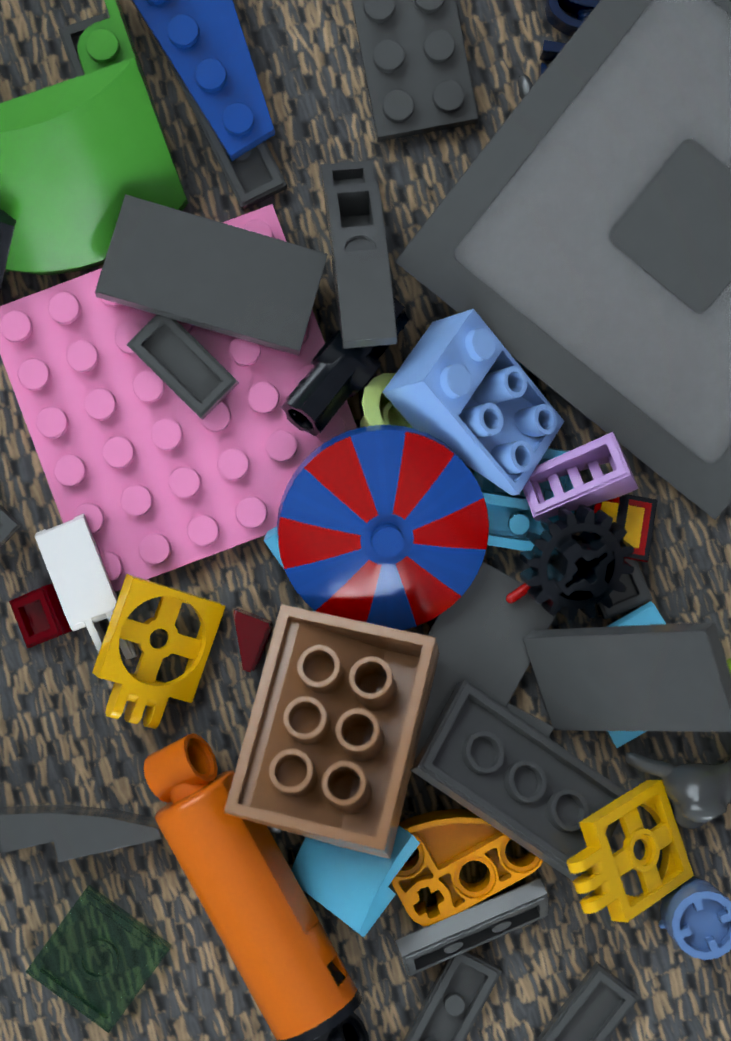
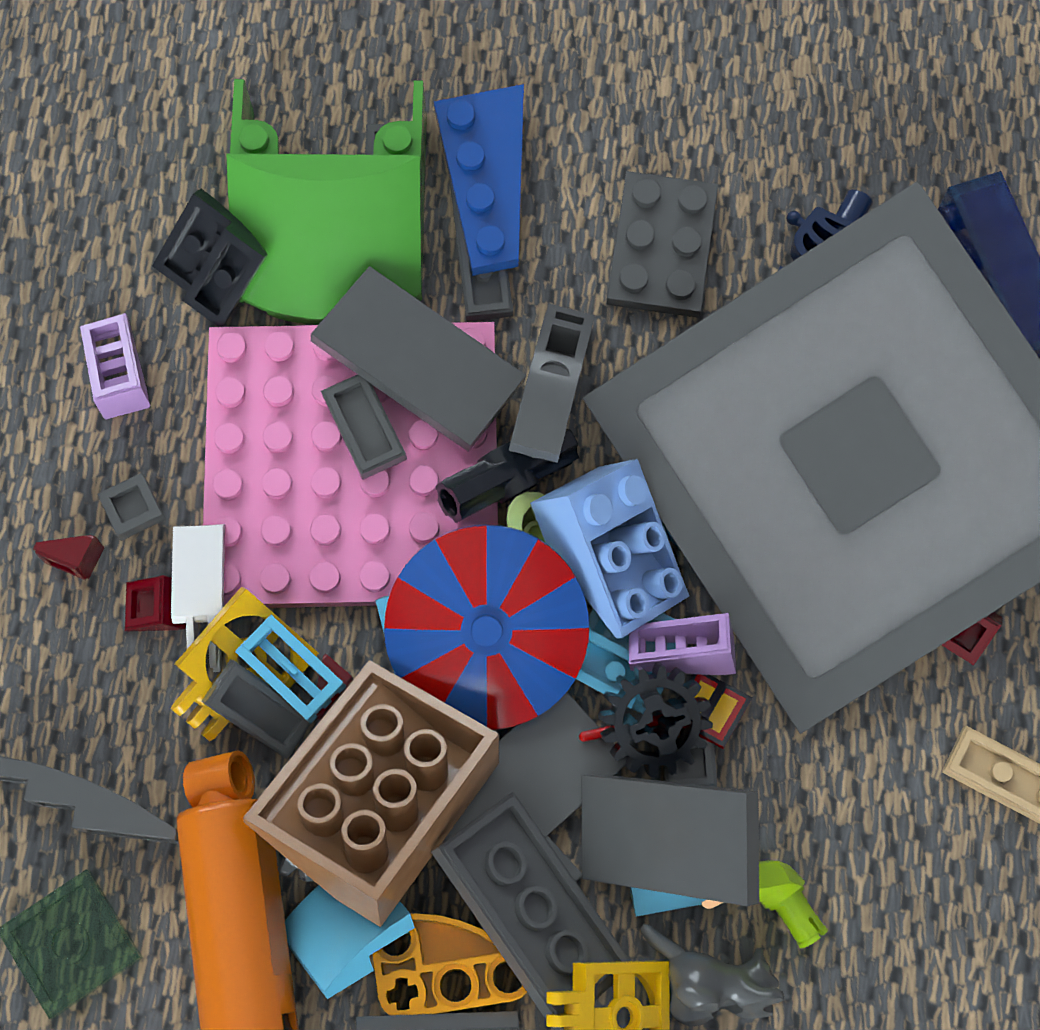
camera: 20 degrees right, 15 degrees down
(189, 683) = (256, 709): none -> dark grey tile
(198, 658) = (321, 698): none -> medium azure tile

